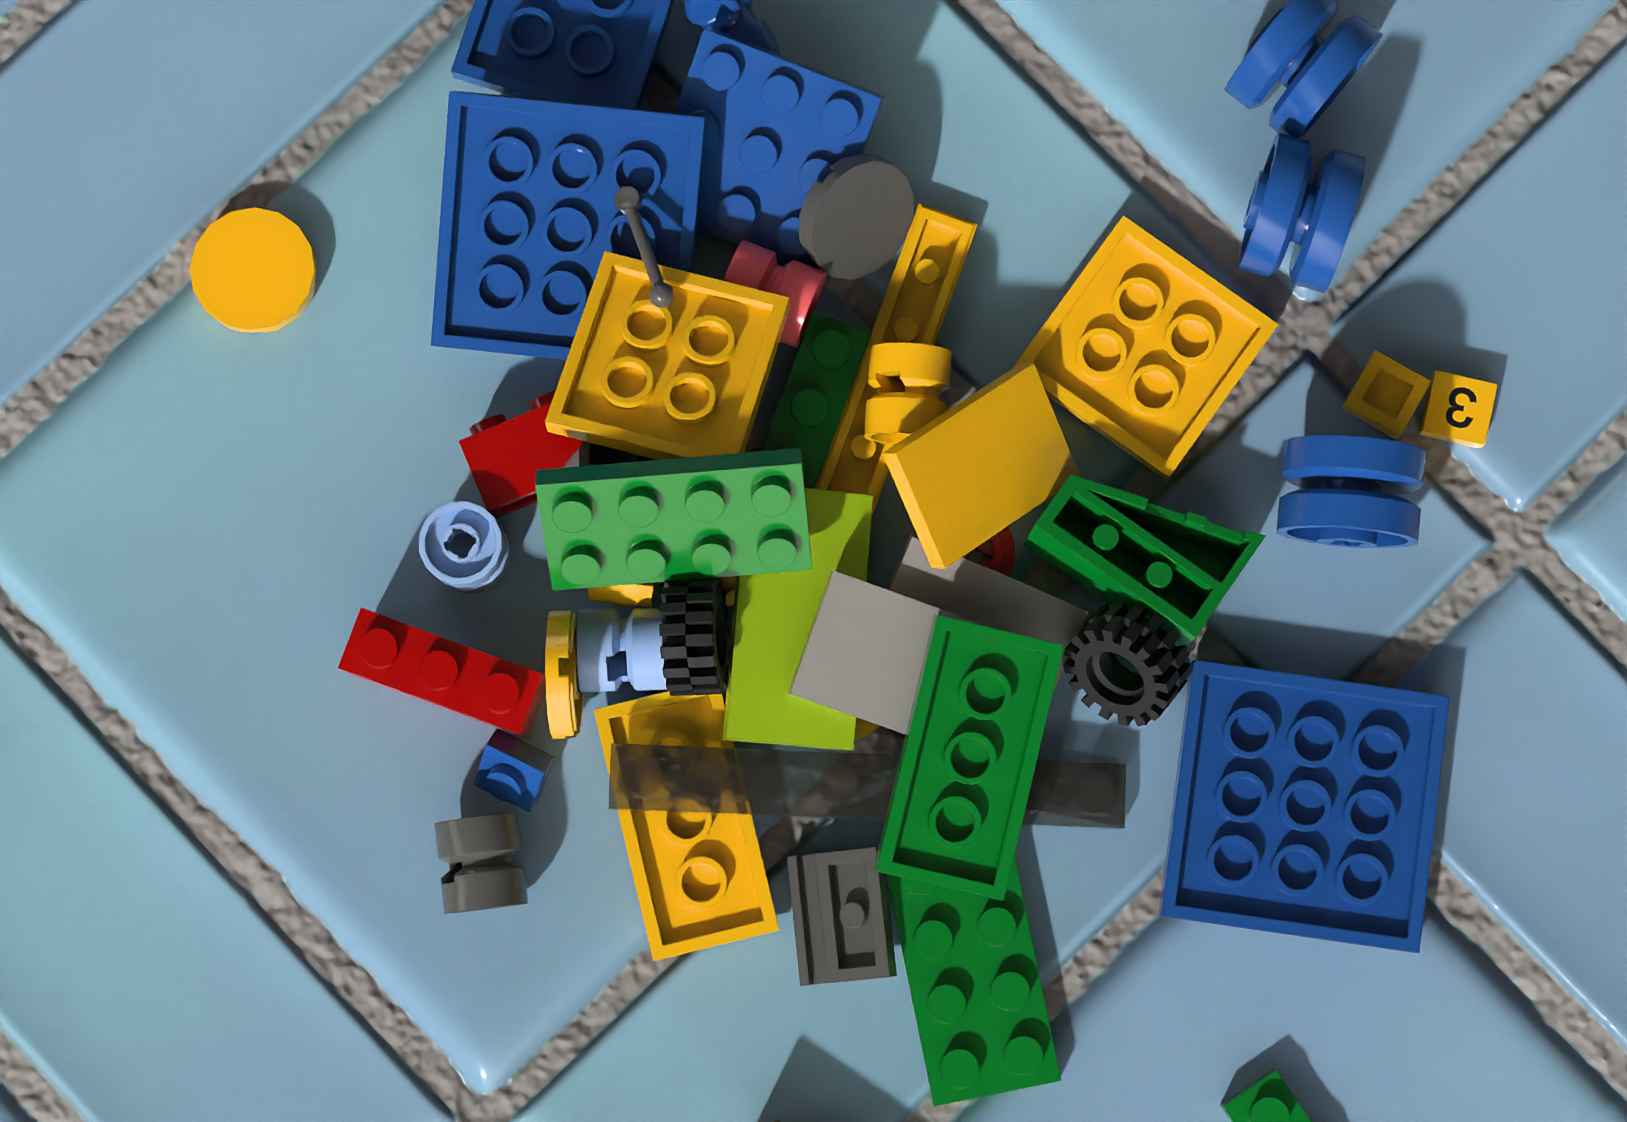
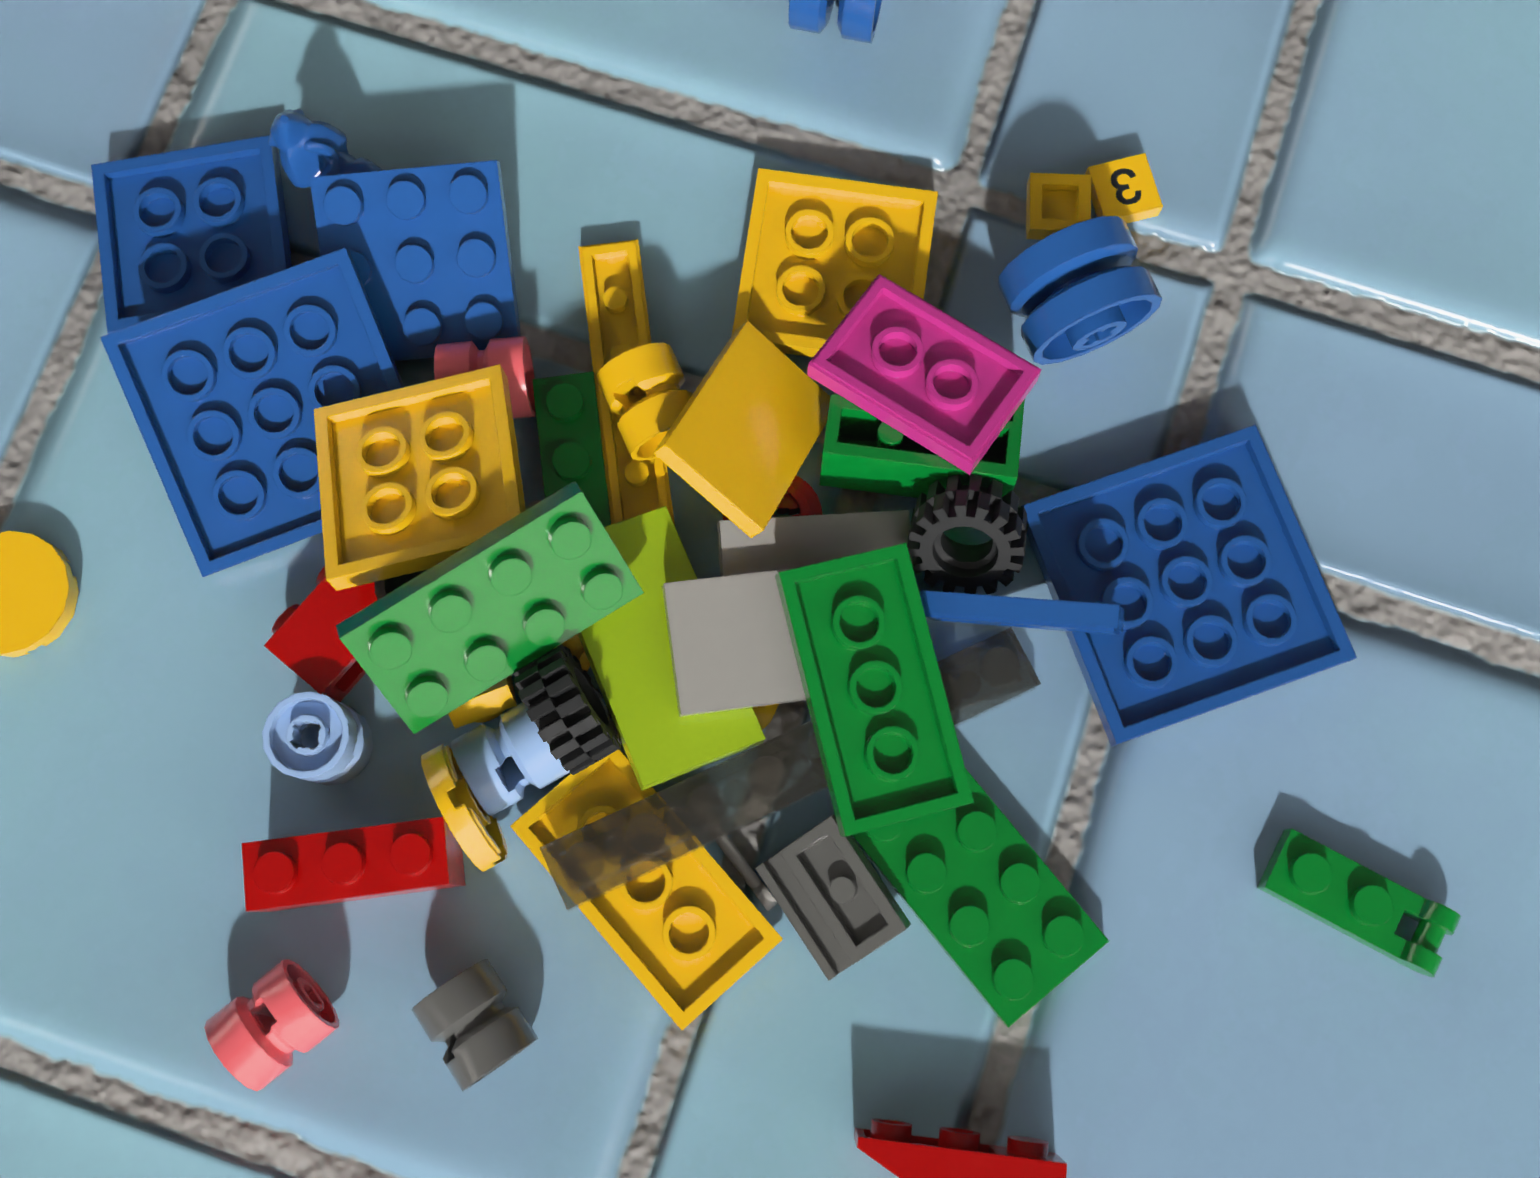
camera: 30 degrees left, 5 degrees down
(289, 780) = (260, 1033): none -> coral wheel
(513, 770) = (463, 921): blue plate -> none
(629, 202) = (315, 356): dark grey hinge -> none
(778, 858) = (747, 873): none -> light grey hinge
(856, 216) = (527, 276): dark grey tile -> none
(1138, 757) = (1023, 612): none -> blue tile
(1164, 498) = (924, 373): none -> dark pink tile
(1309, 215) = (909, 84): blue wheel -> none

